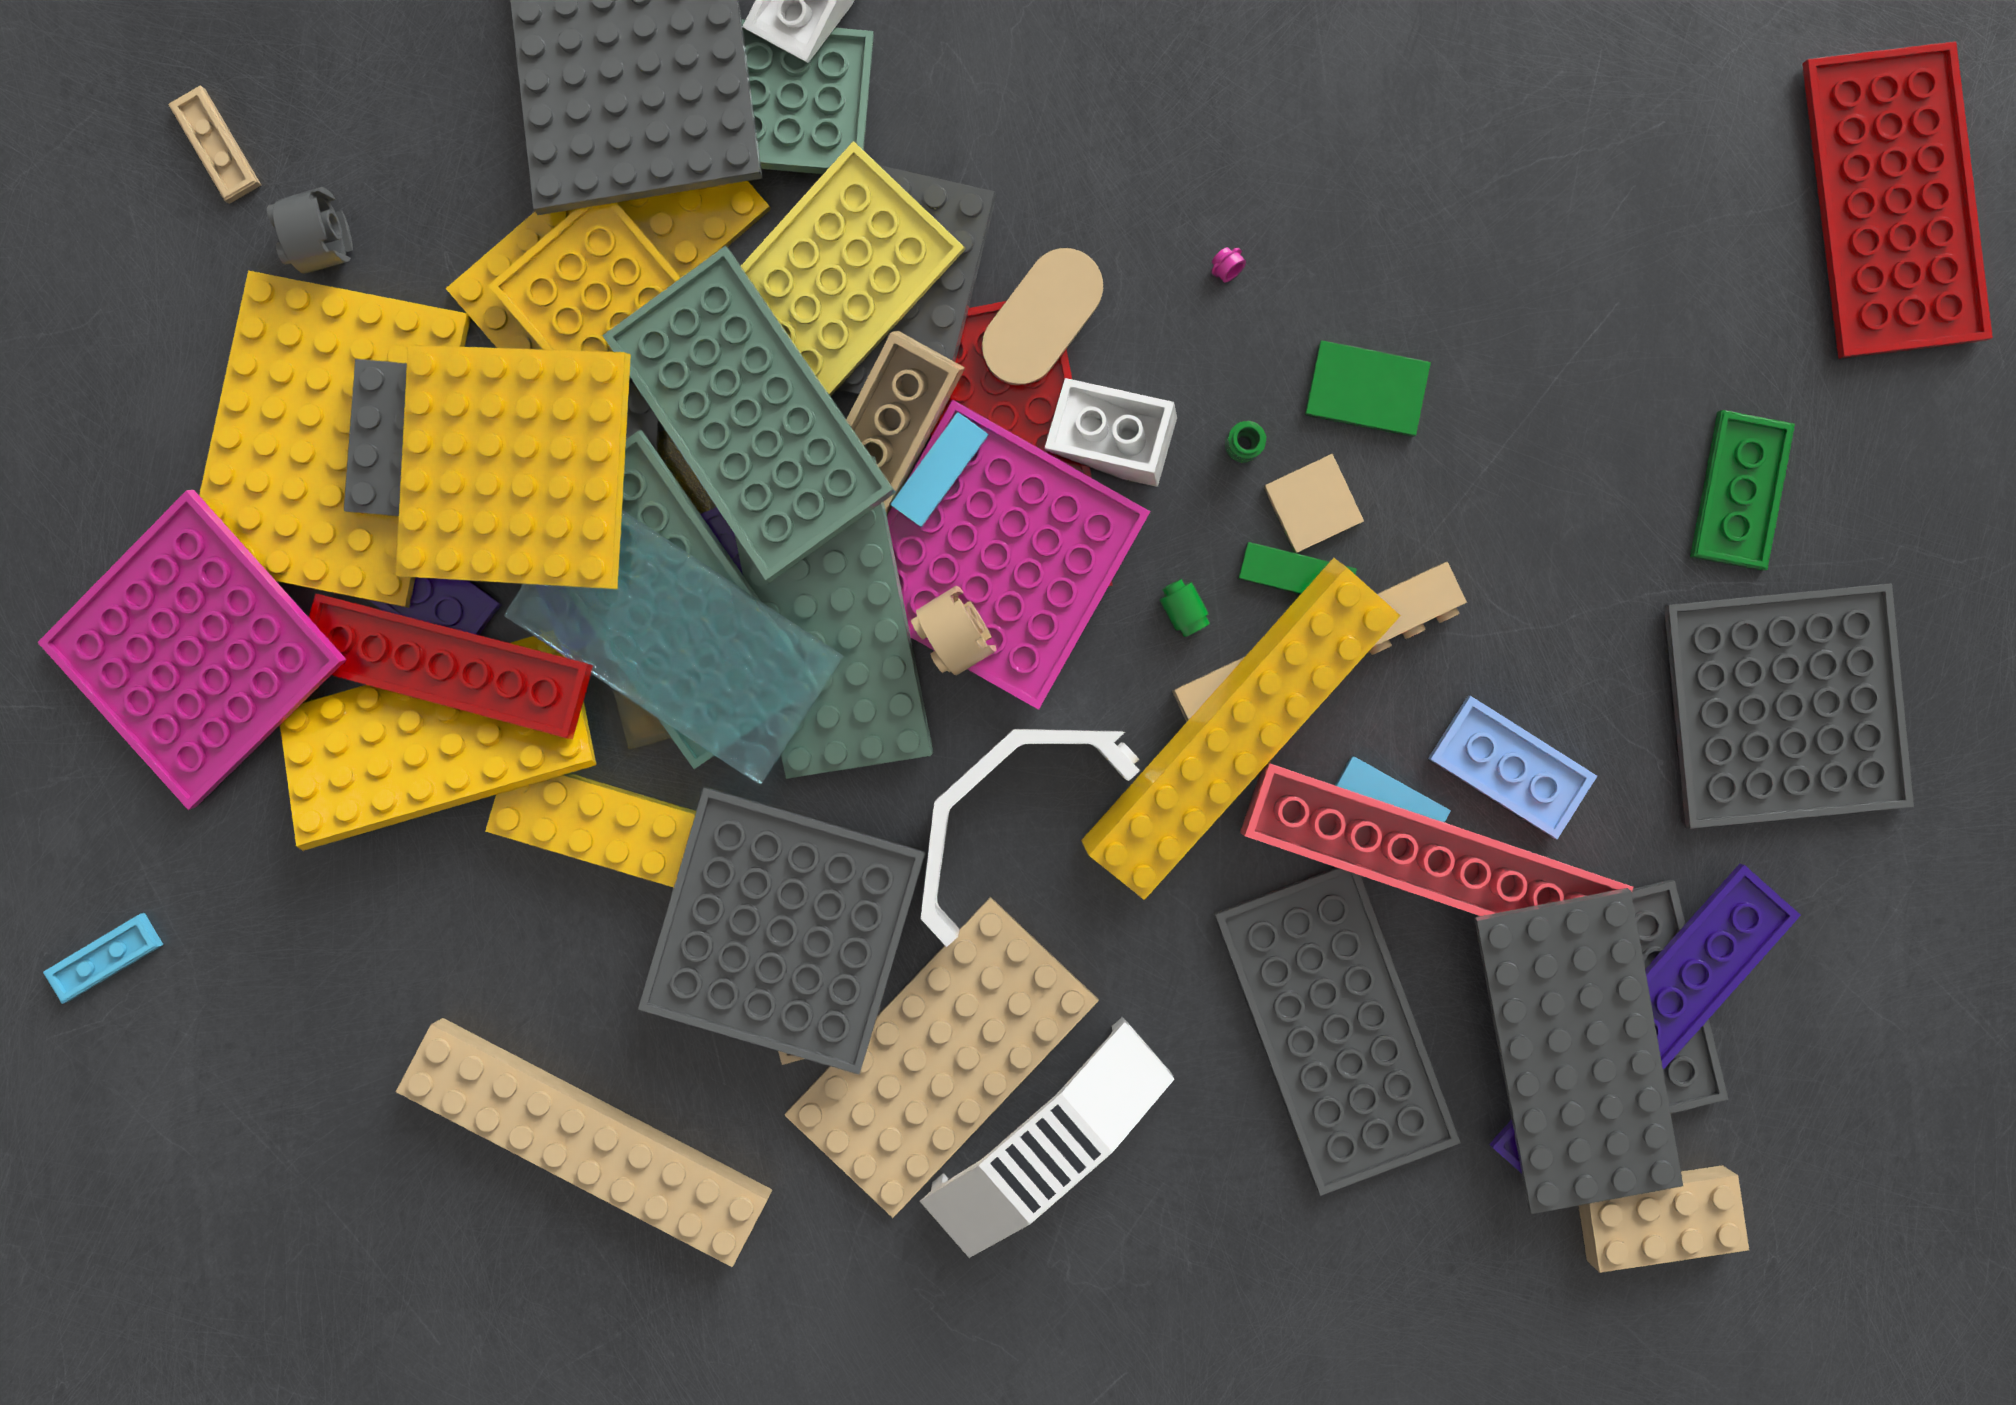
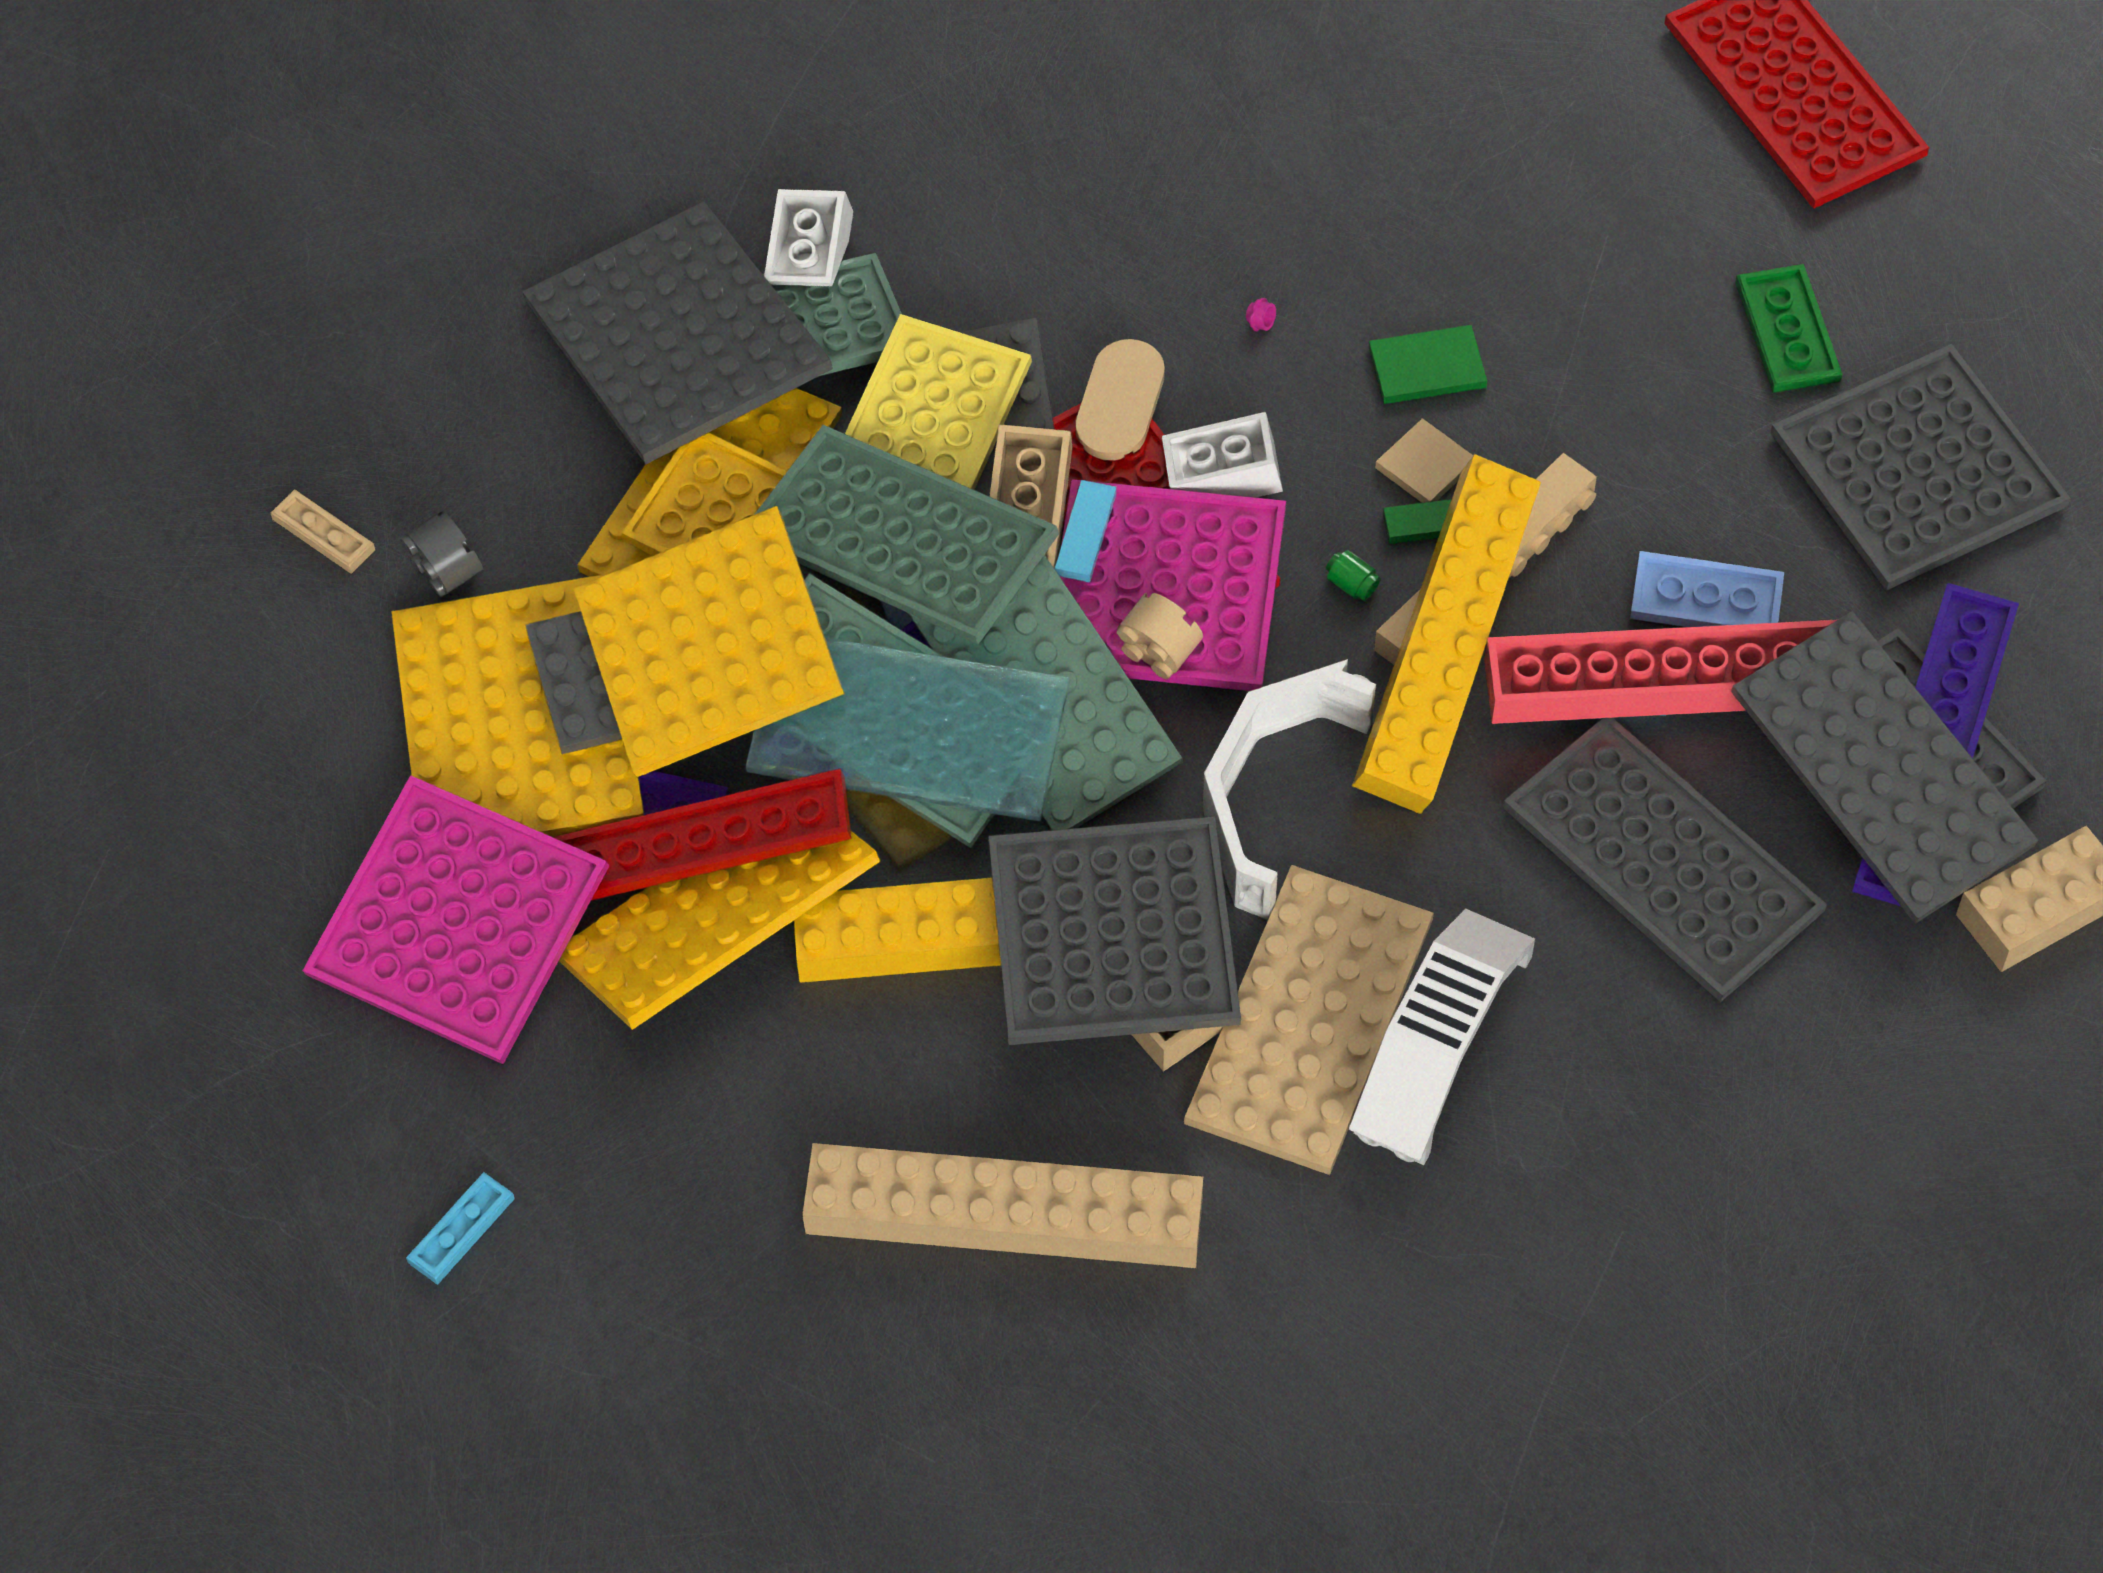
camera: 20 degrees left, 30 degrees down
(1253, 433) = (1342, 430): green brick -> none

